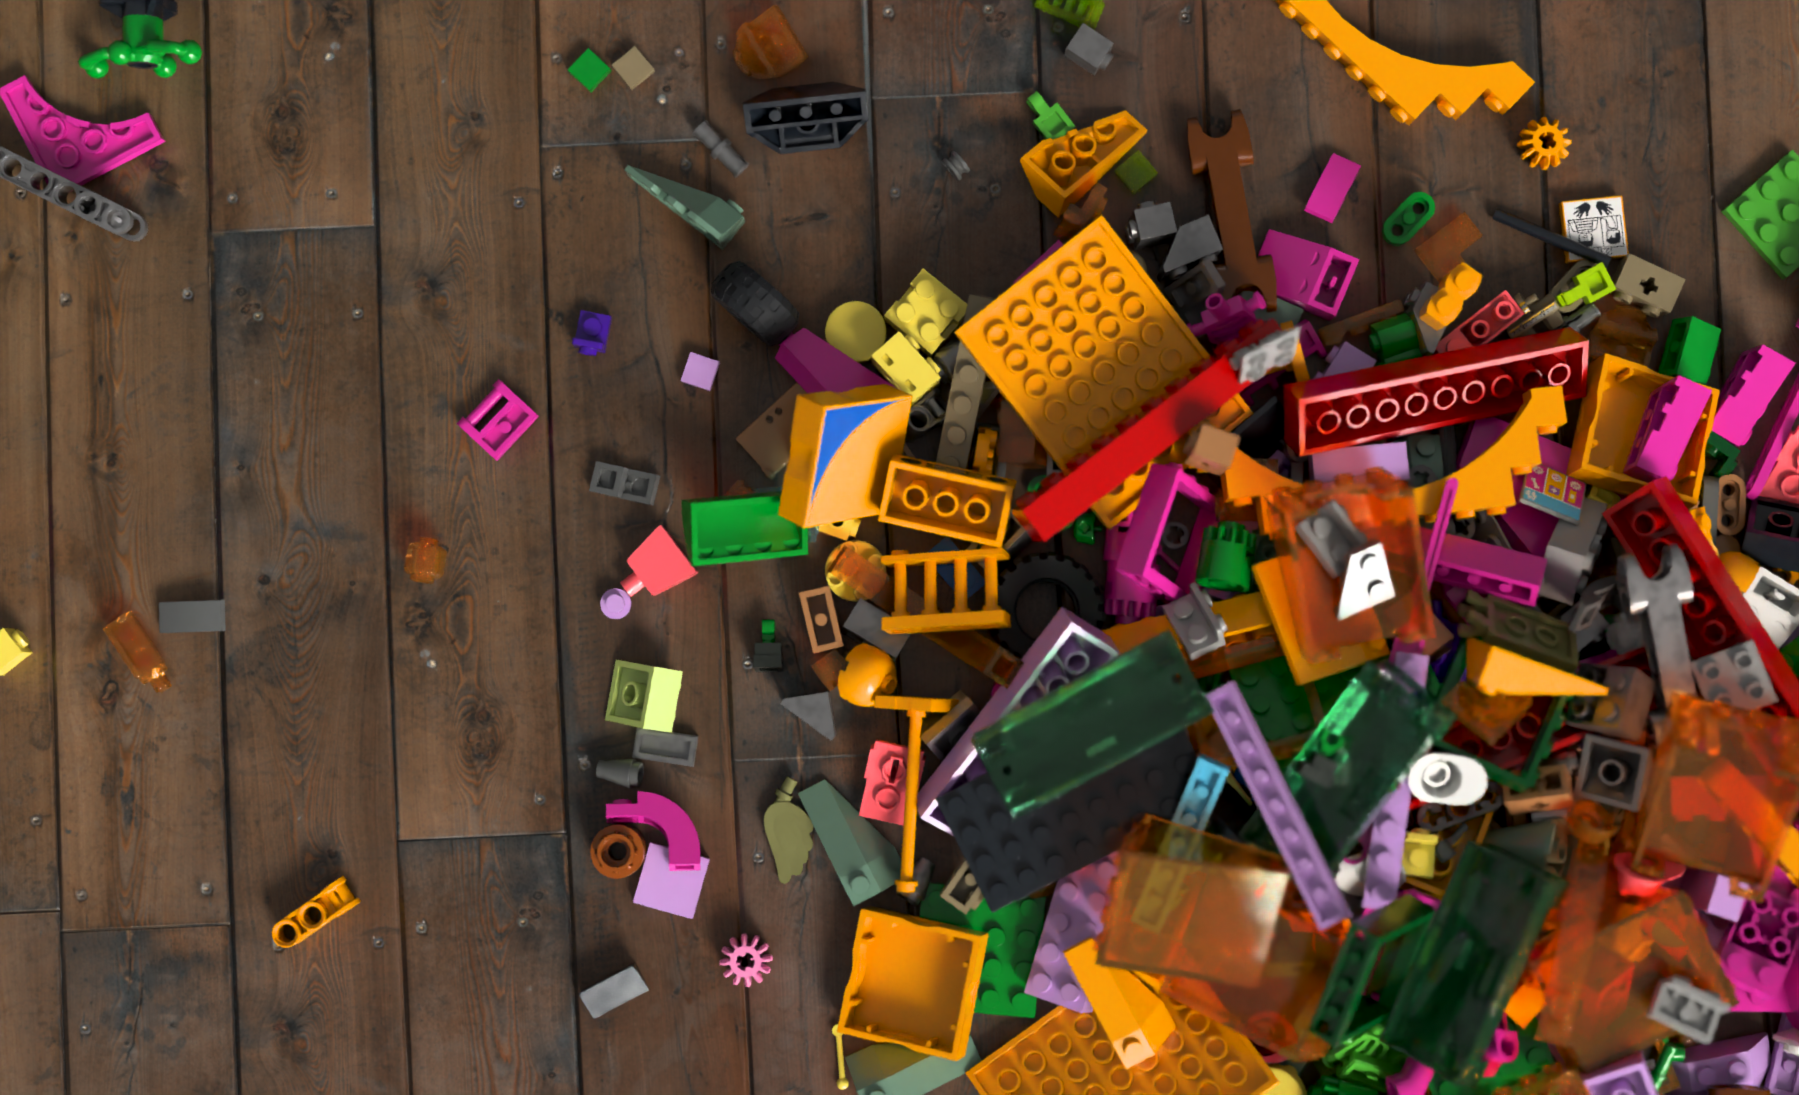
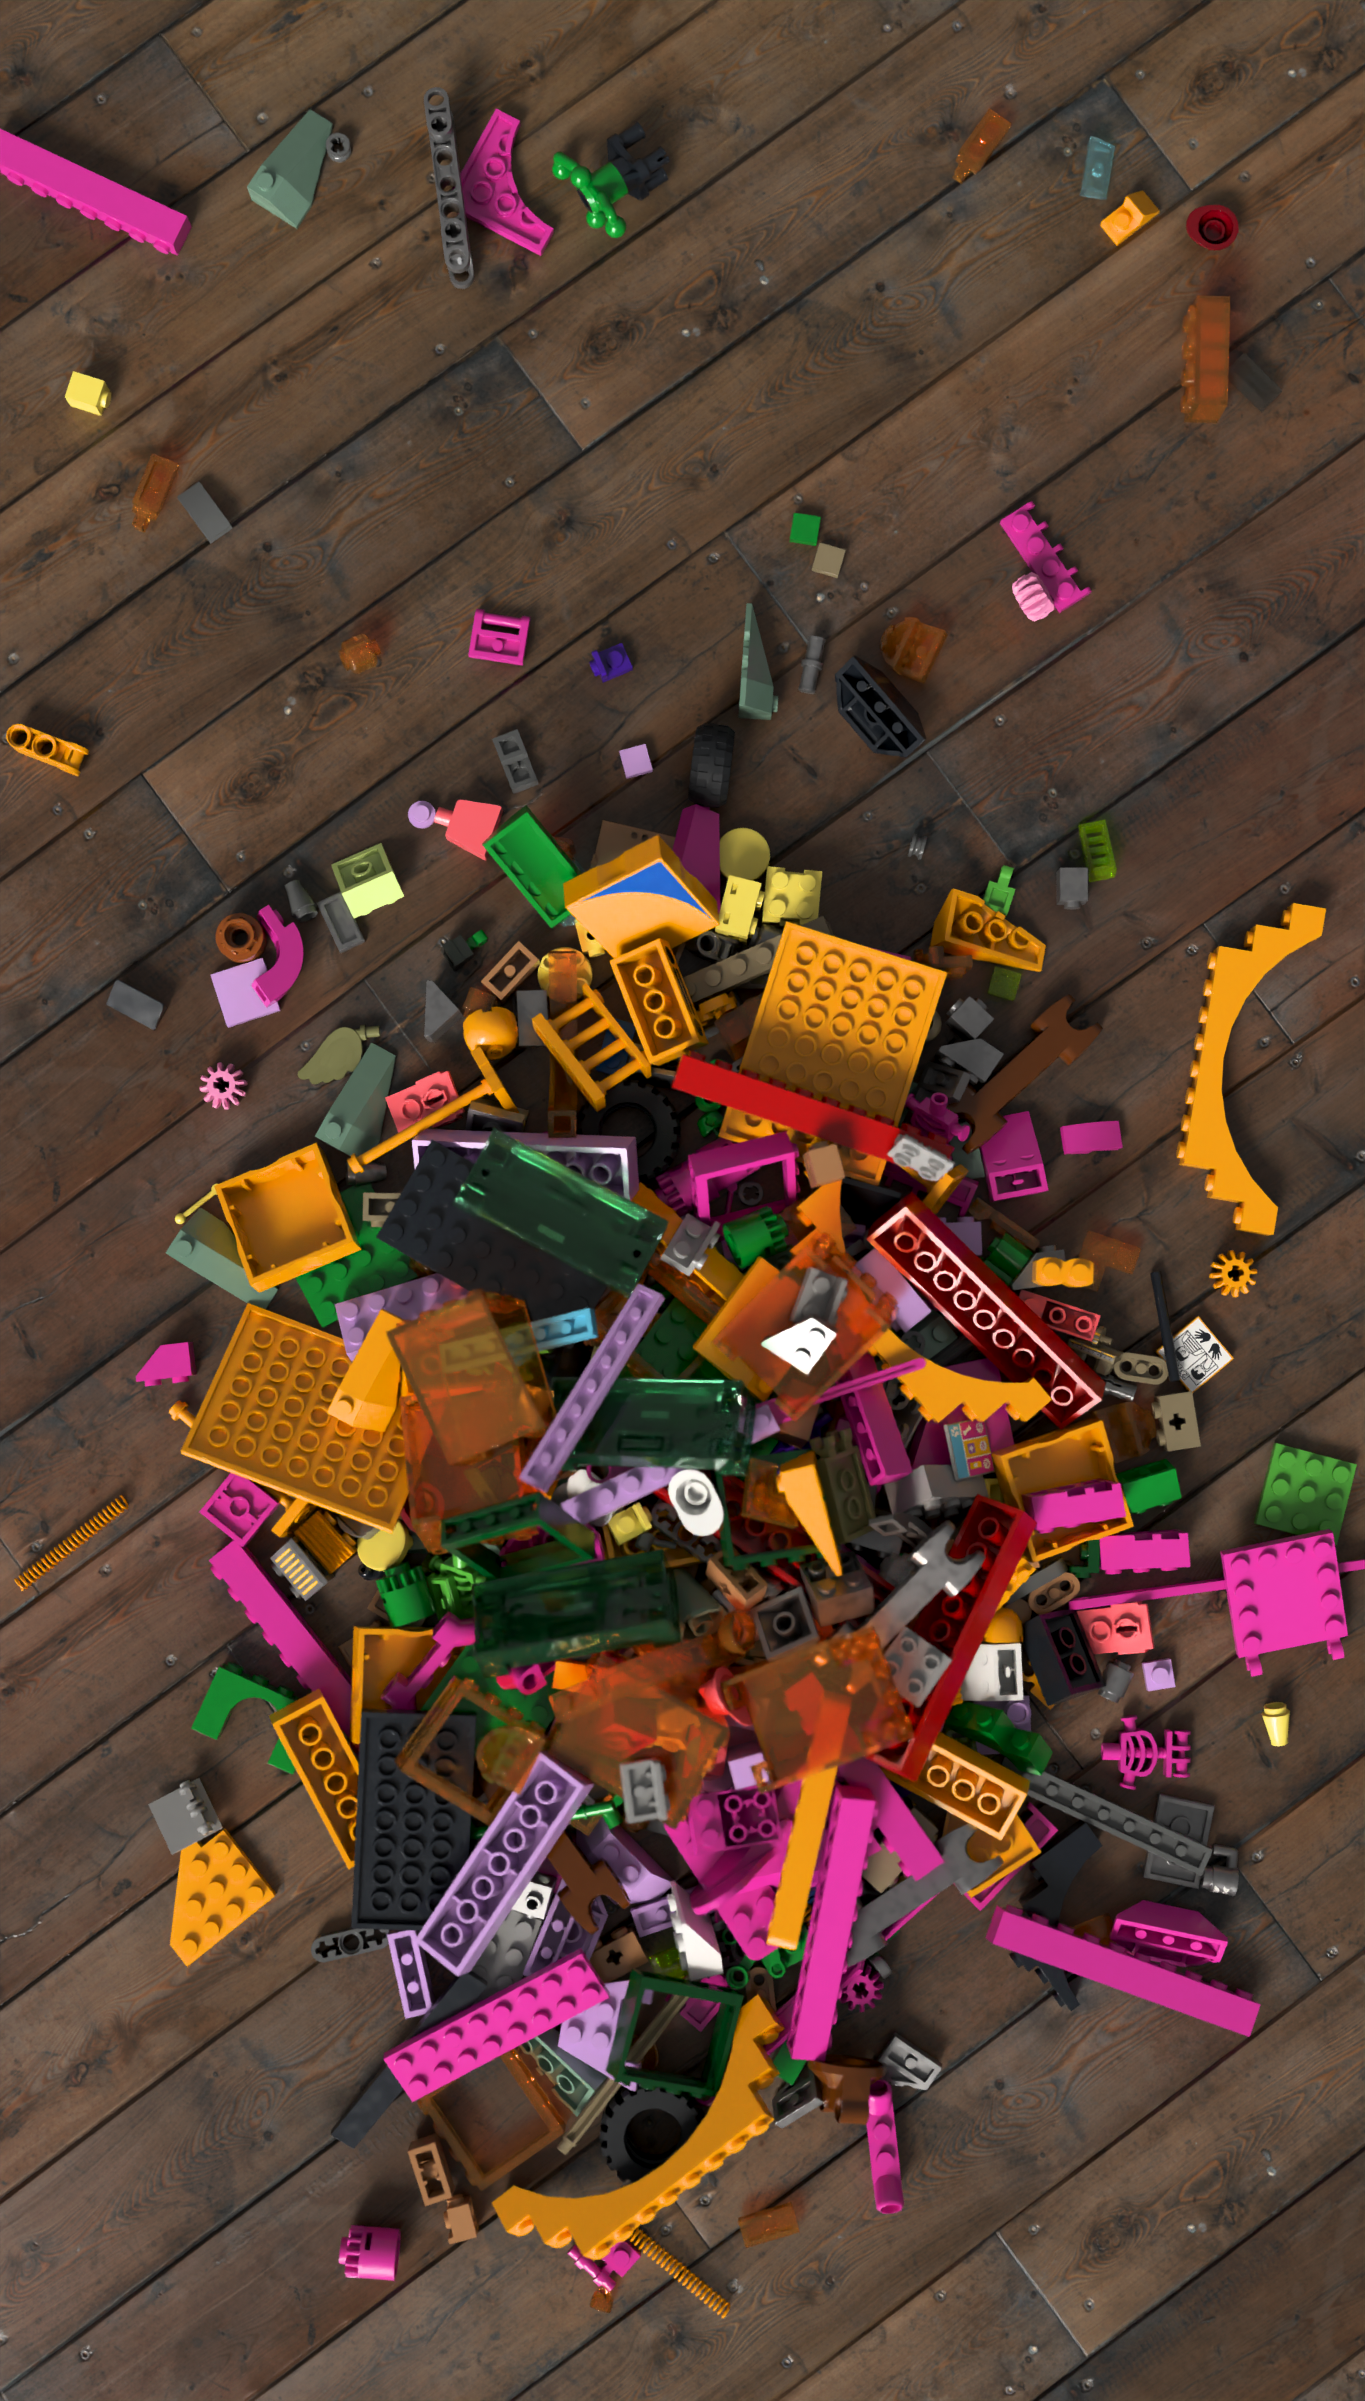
camera: 55 degrees right, 0 degrees up
(1319, 766) = (641, 1399): pearl dark grey piece -> none
(1408, 220) = (1106, 1209): green plate -> none
(1590, 286) = (1147, 1377): lime plate -> none

